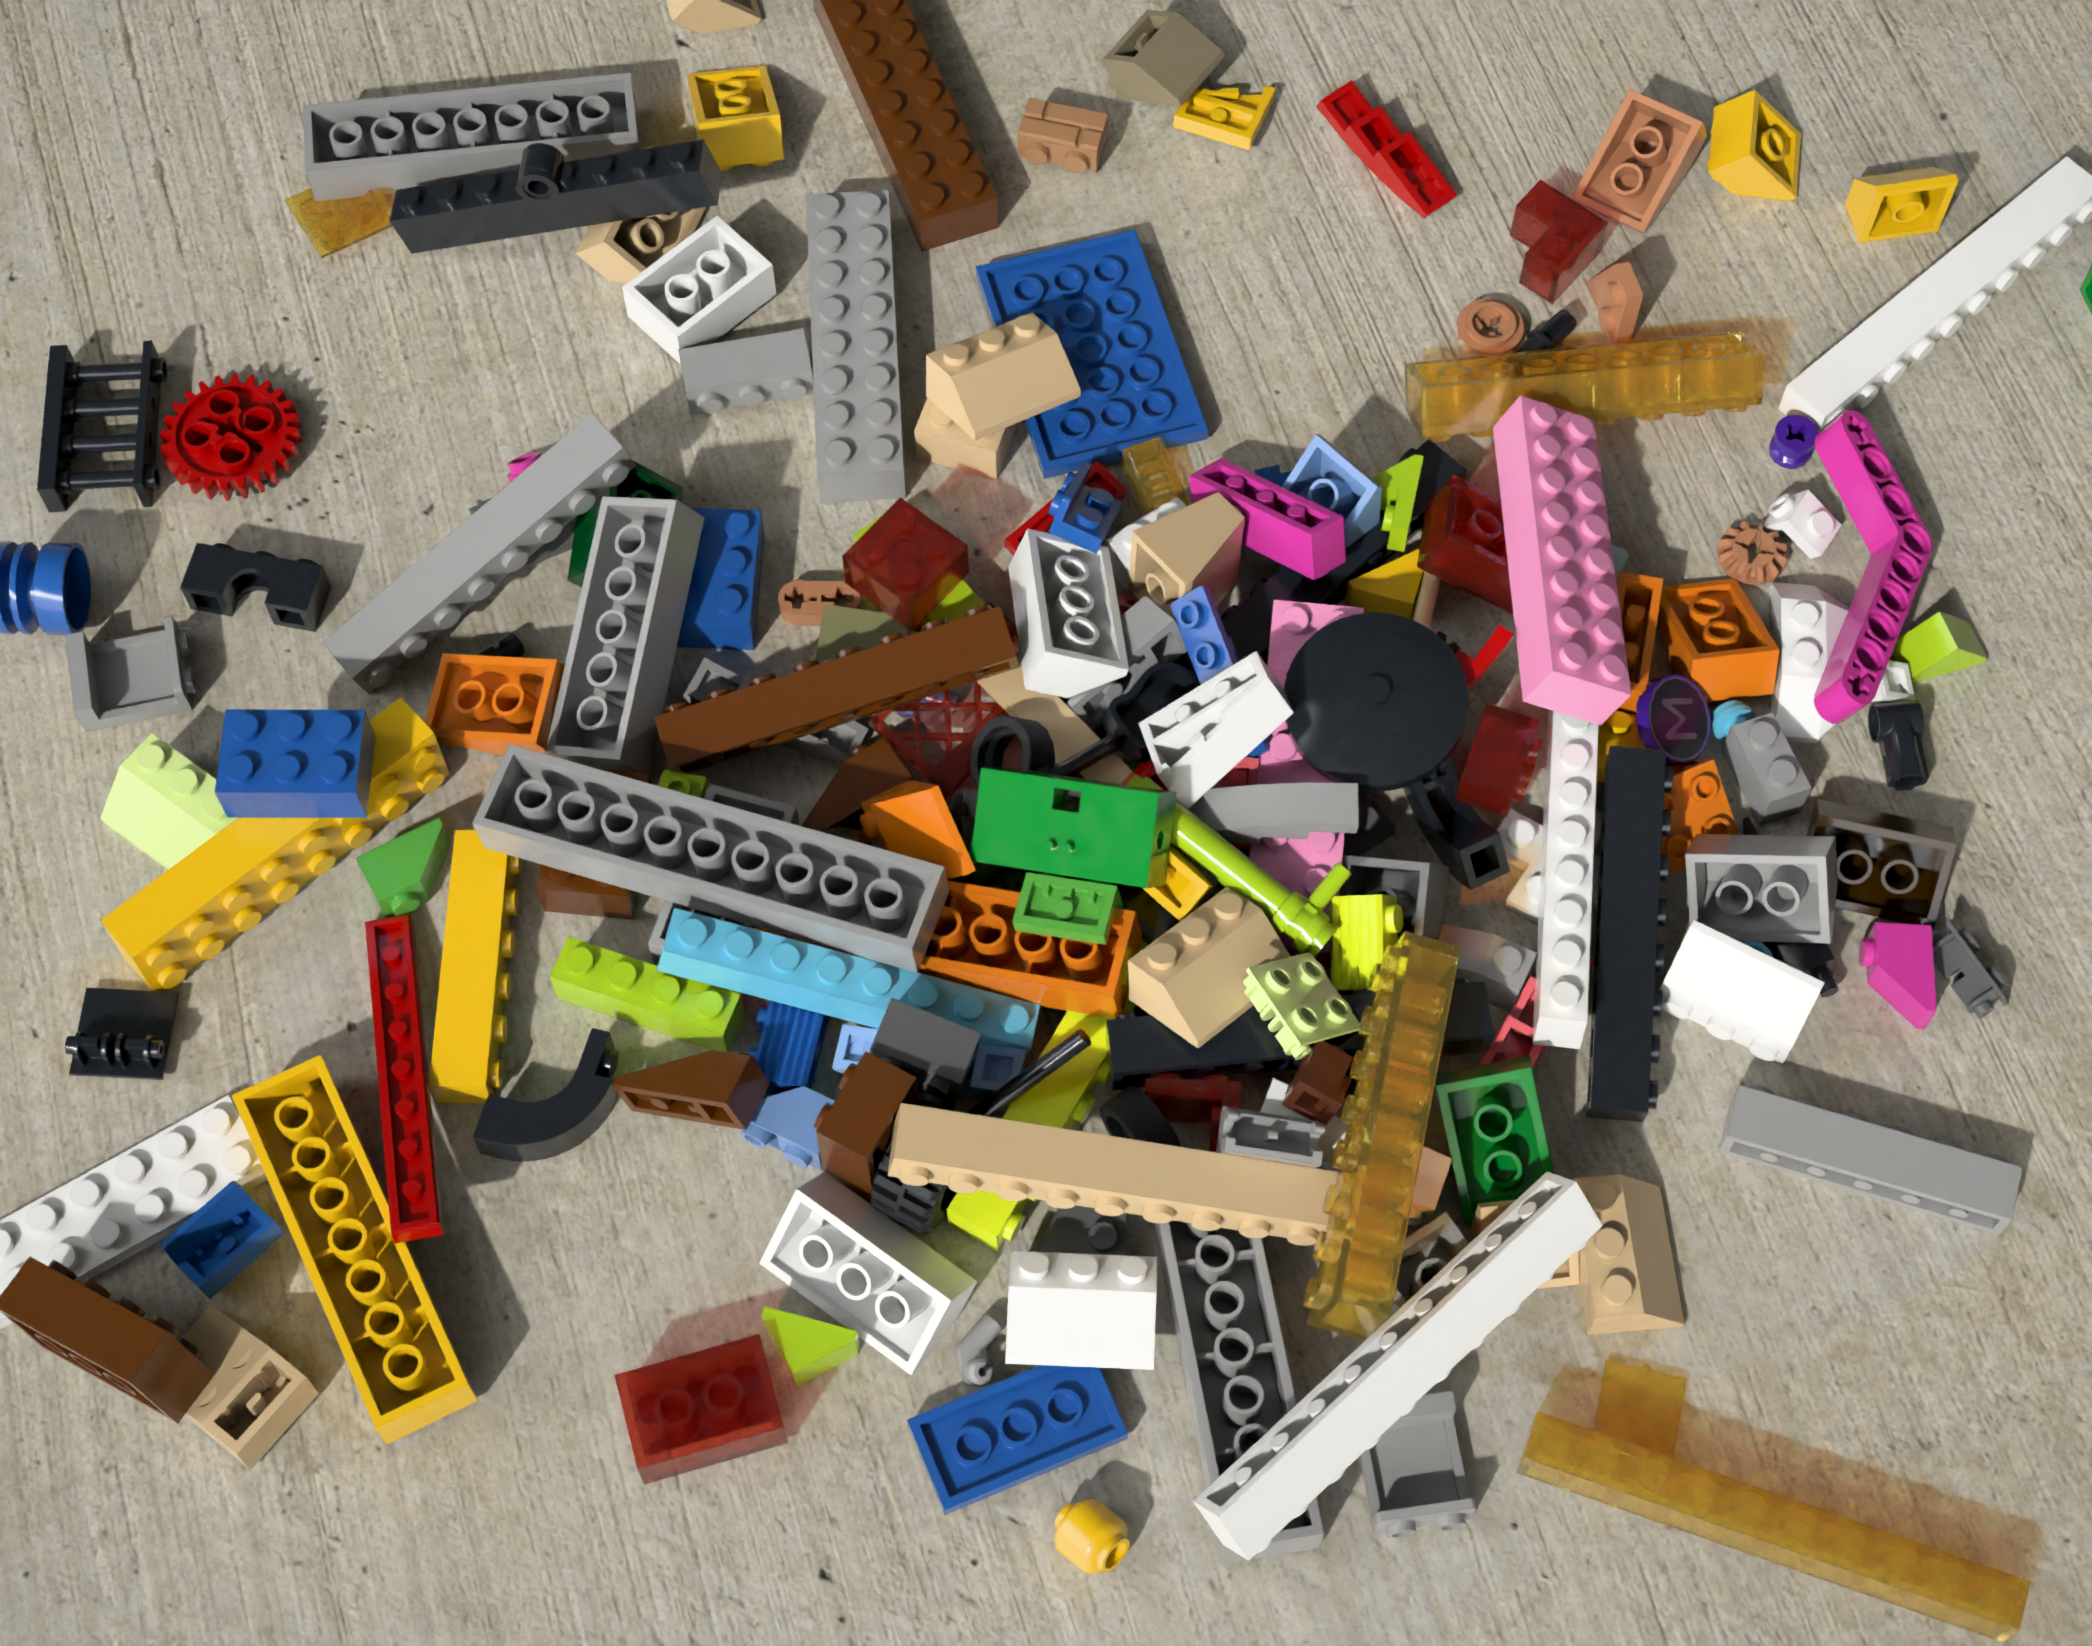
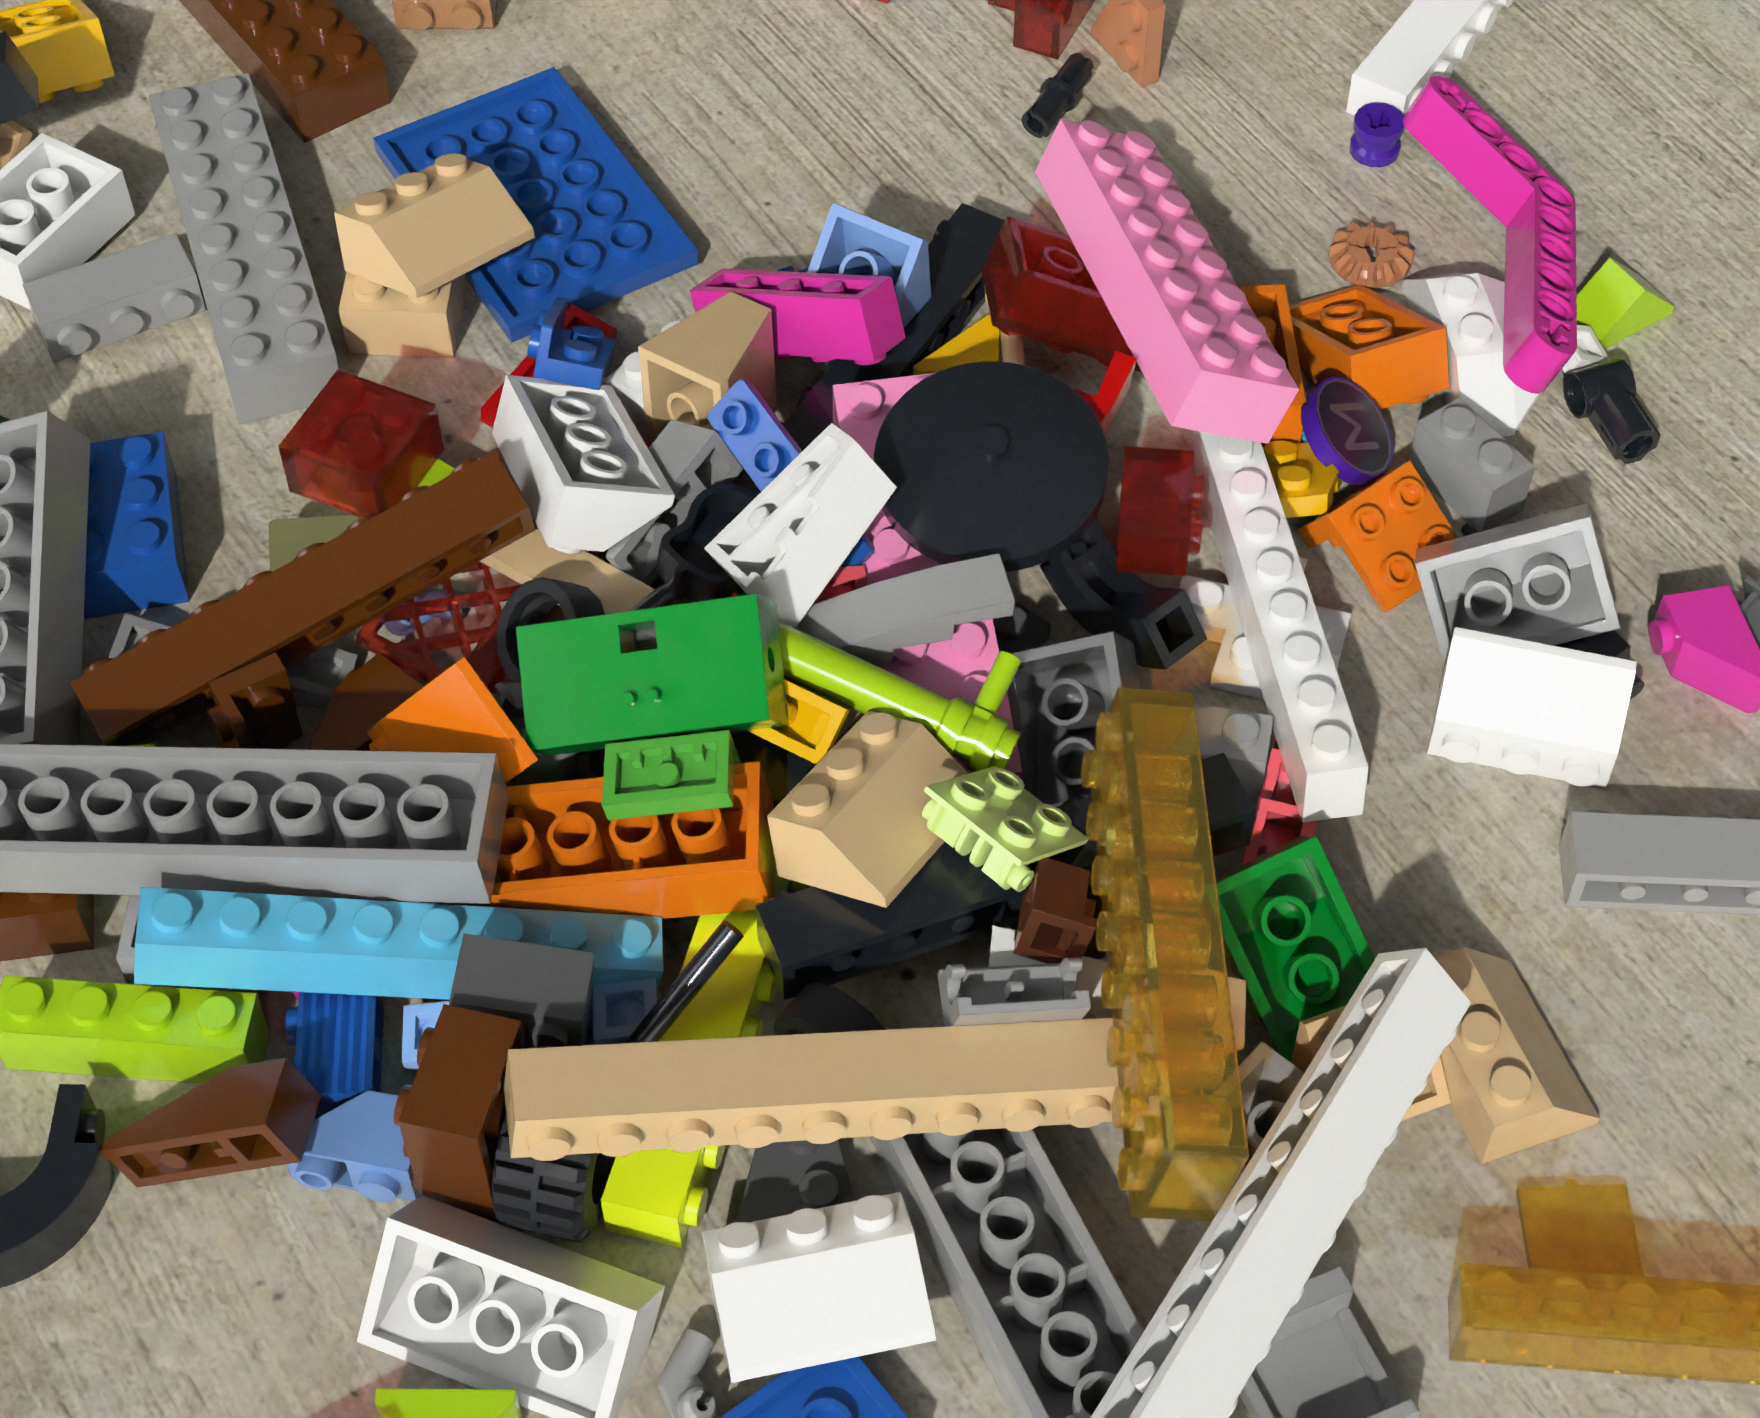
camera: 15 degrees left, 10 degrees down
(782, 766) = (255, 707): none -> reddish brown bracket
(815, 596) = (253, 527): nougat beam -> none
(1148, 460) = (631, 295): clear yellow slope -> none
(1194, 1099) = (897, 984): clear red bracket -> none
(1363, 932) = (1055, 733): neon yellow brick -> none
(1398, 499) = (951, 263): lime slope -> none
(1488, 313) = (988, 79): nougat gear -> none
(1590, 381) = (1160, 102): clear yellow brick -> none
(1627, 935) = (1373, 649): black brick -> none
(1728, 715) = (1403, 423): medium azure plate -> none
(1803, 521) = (1418, 207): white bracket -> none
(1887, 861) = (1653, 533): dark brown slope -> none

